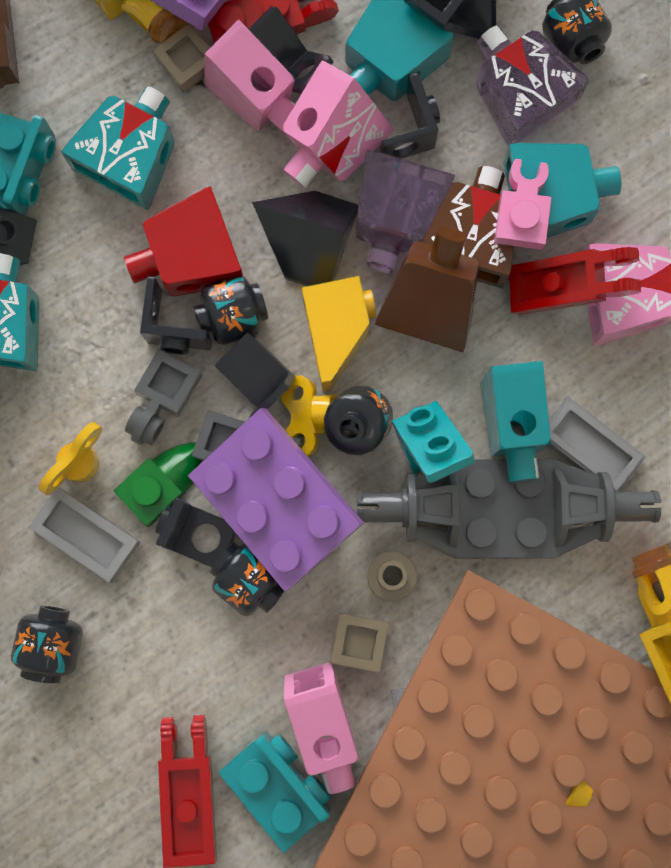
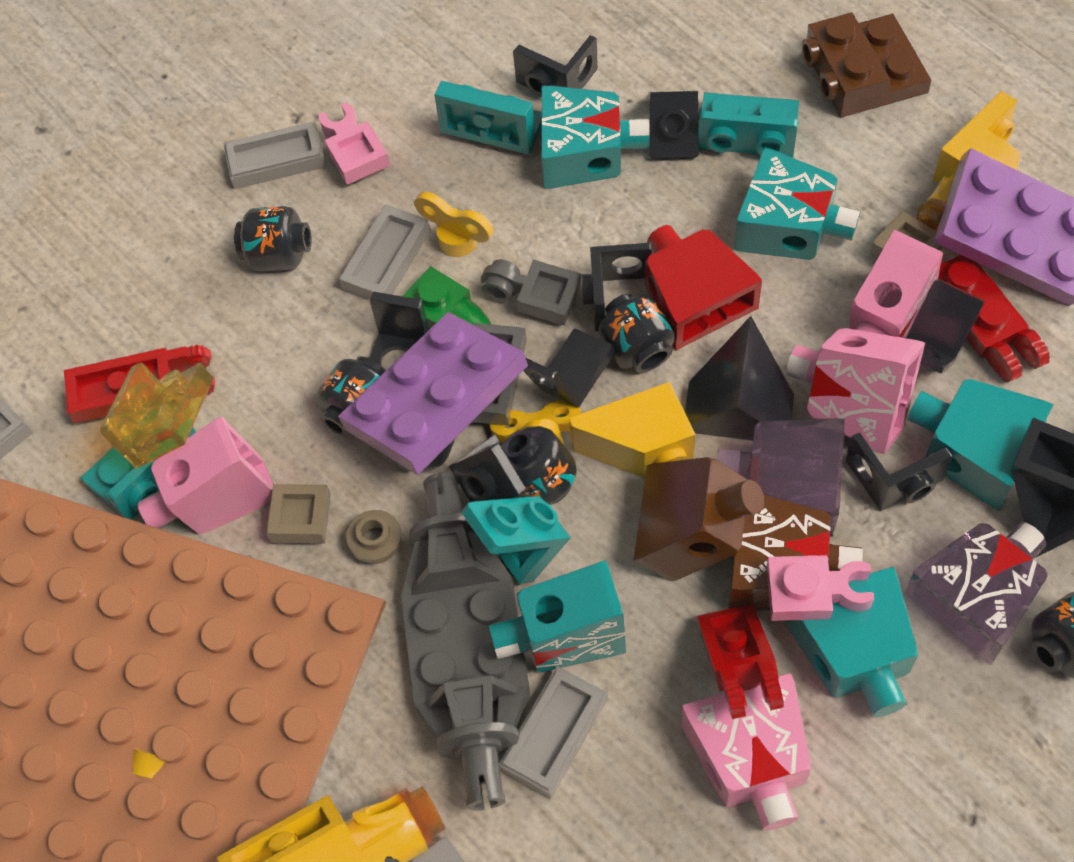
camera: 85 degrees right, 20 degrees down
(249, 767) = (155, 414): none -> clear yellow bracket
(372, 463) = (487, 473): none -> black bracket

